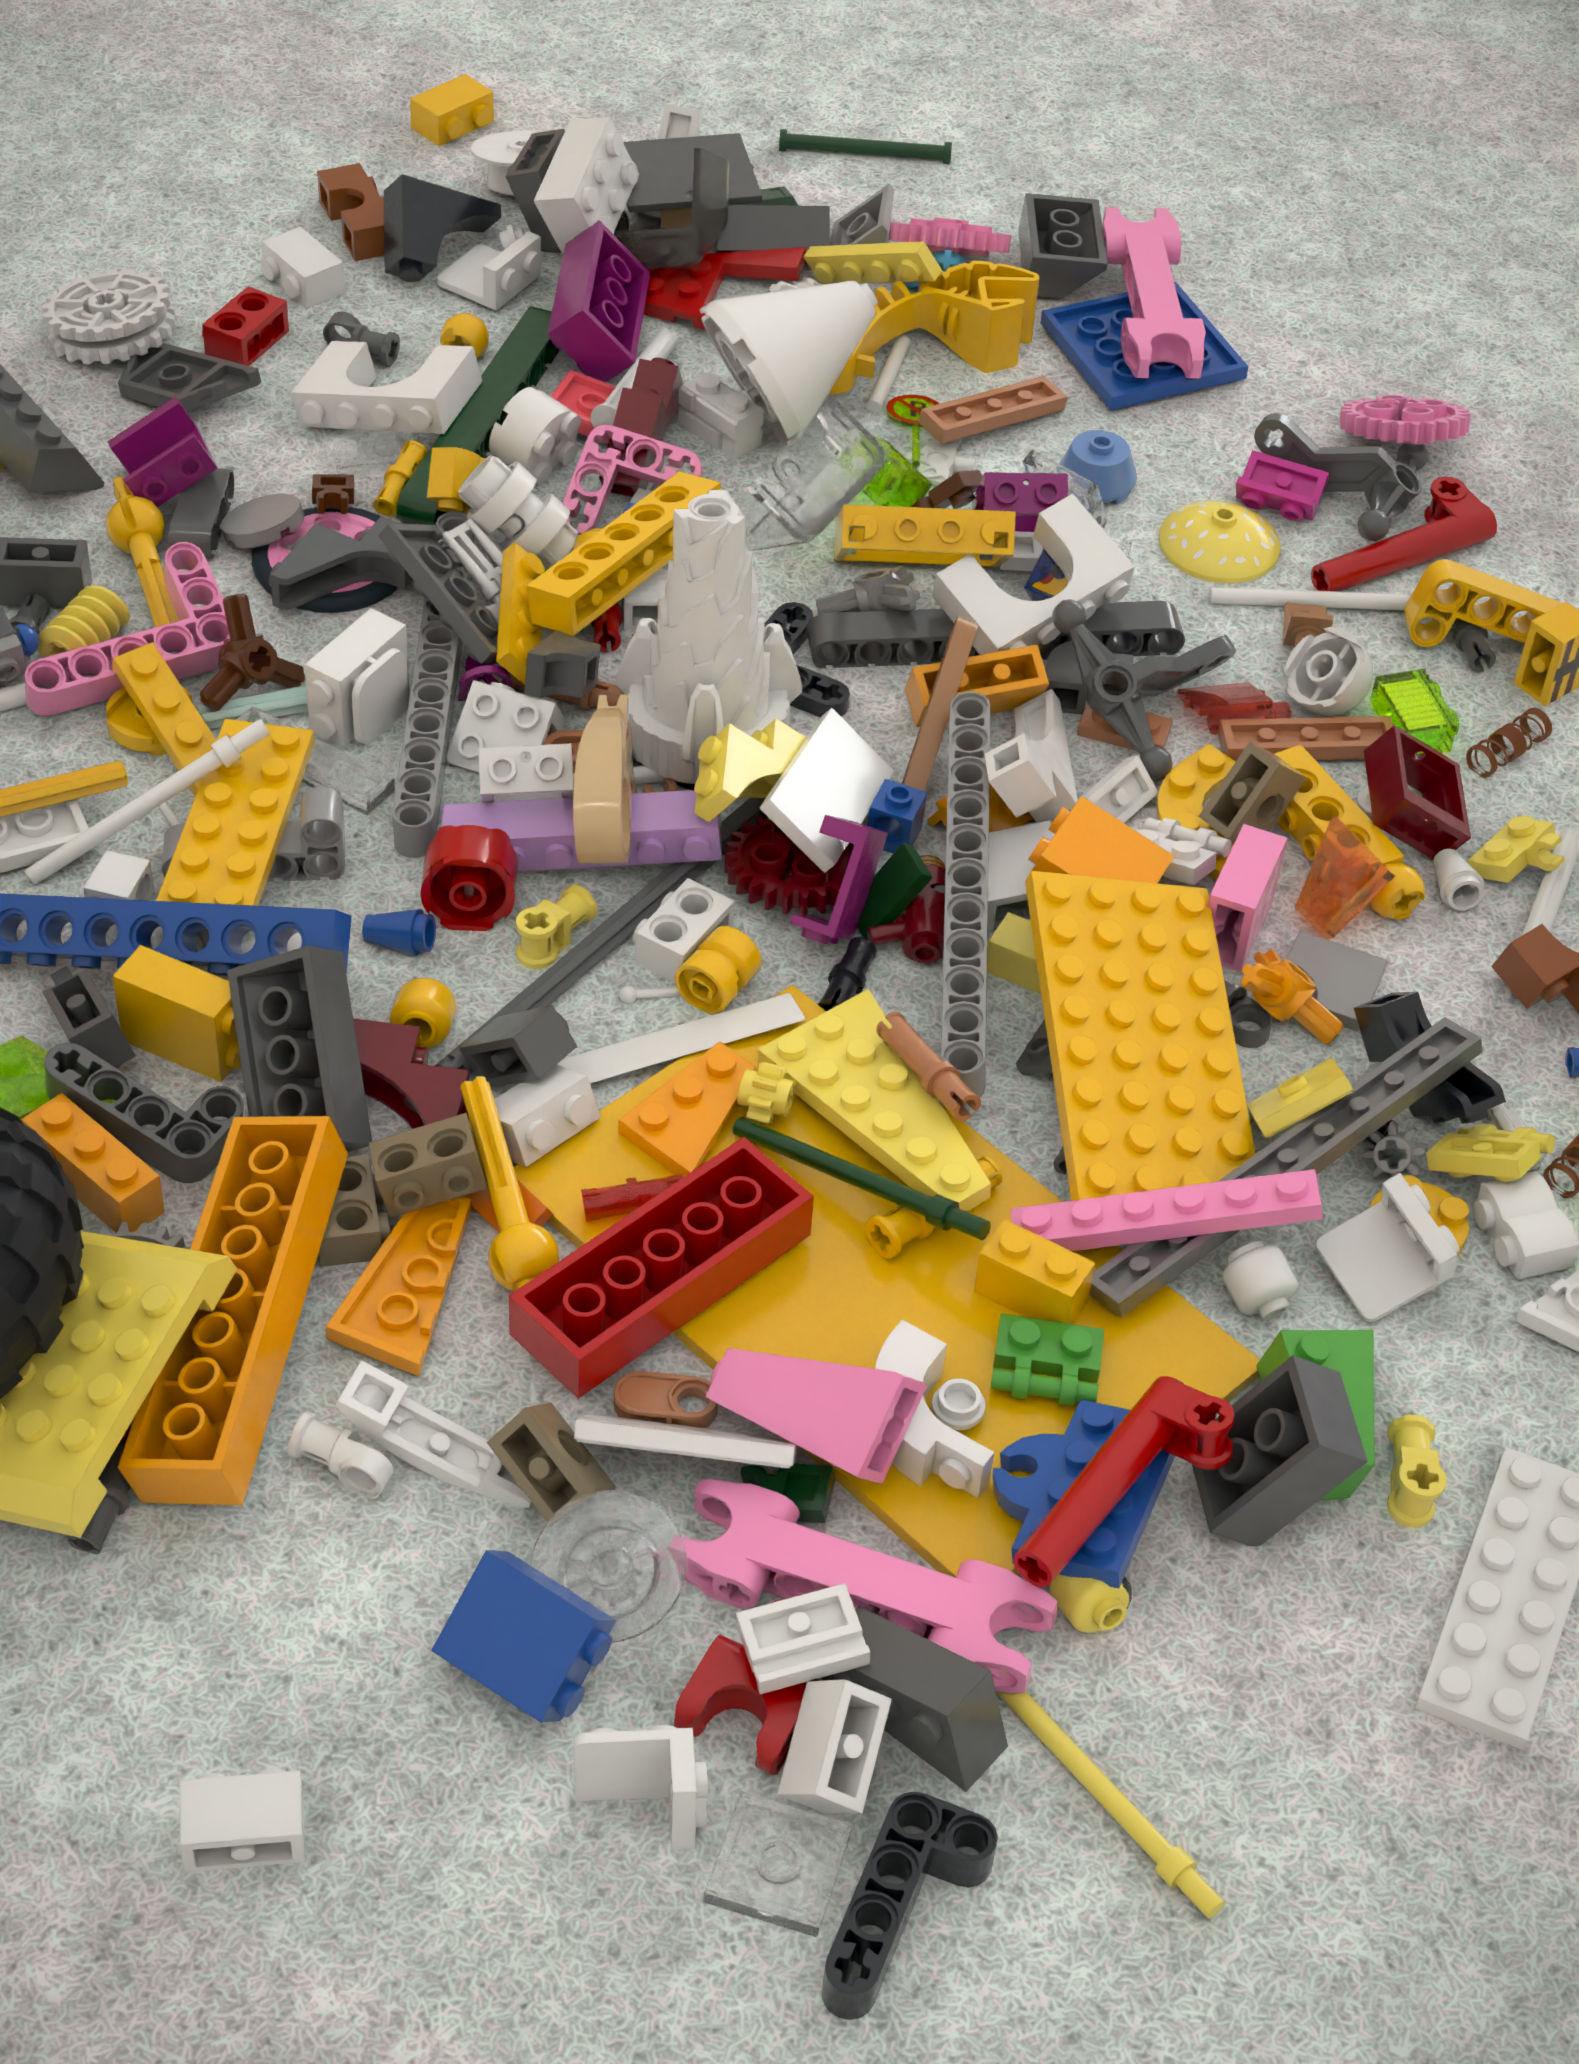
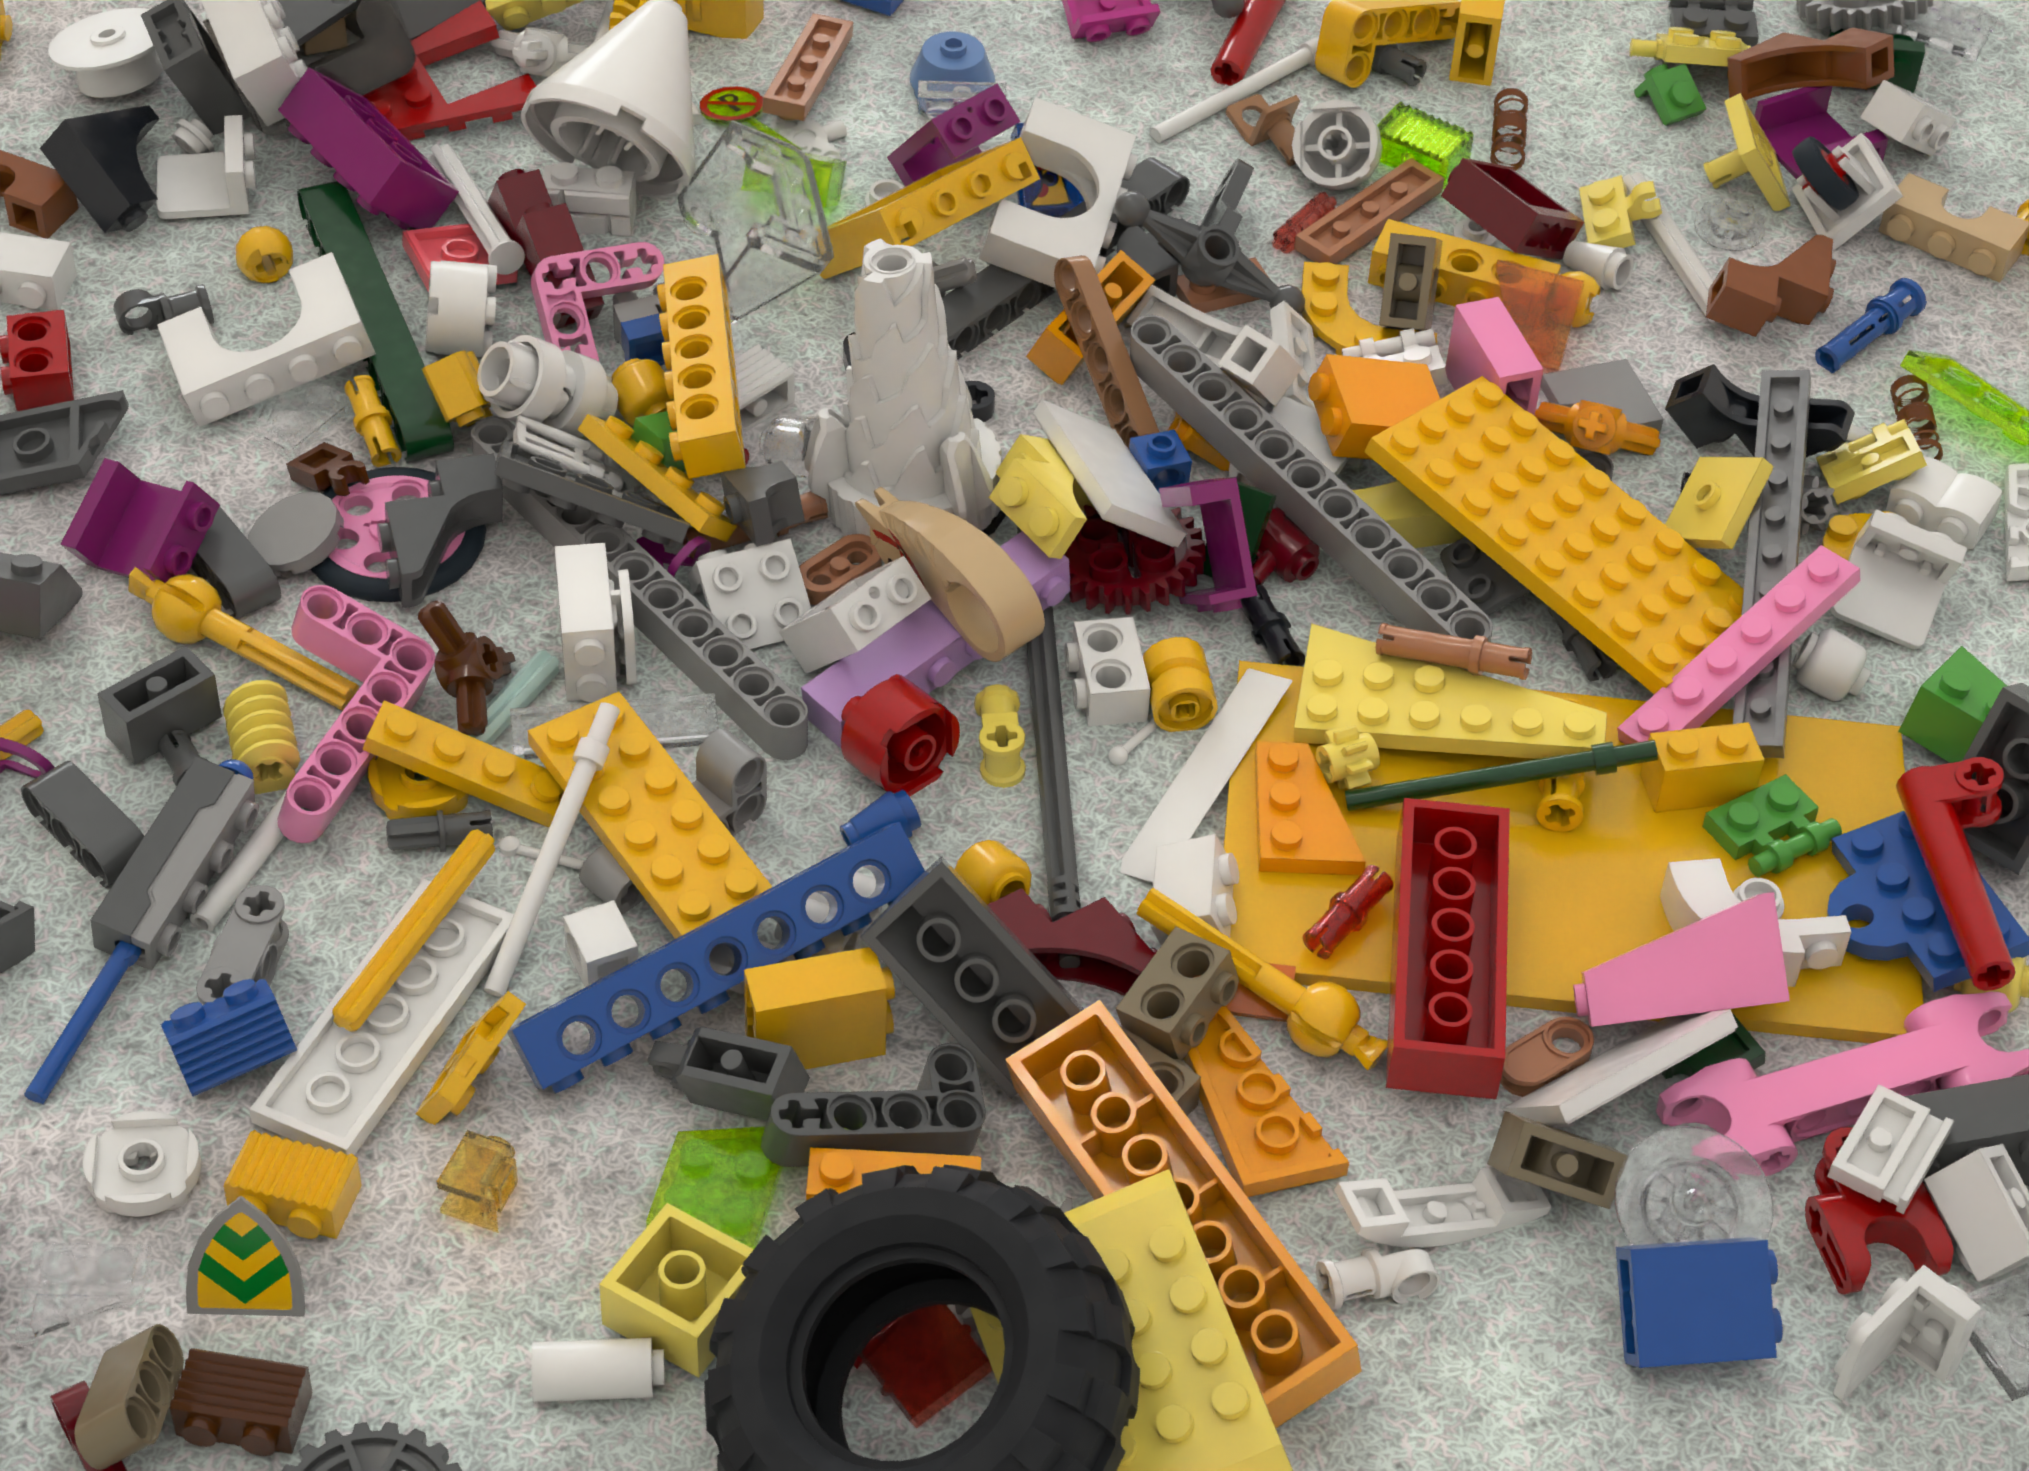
camera: 40 degrees left, 0 degrees up
(109, 750) = (435, 830): none -> dark grey axle
(519, 1046) = (1121, 849): dark grey brick -> none
(953, 491) = (880, 156): reddish brown plate -> none
(1219, 541) = (1108, 83): light yellow dish -> none
(1224, 699) = (1277, 215): clear red piece -> none

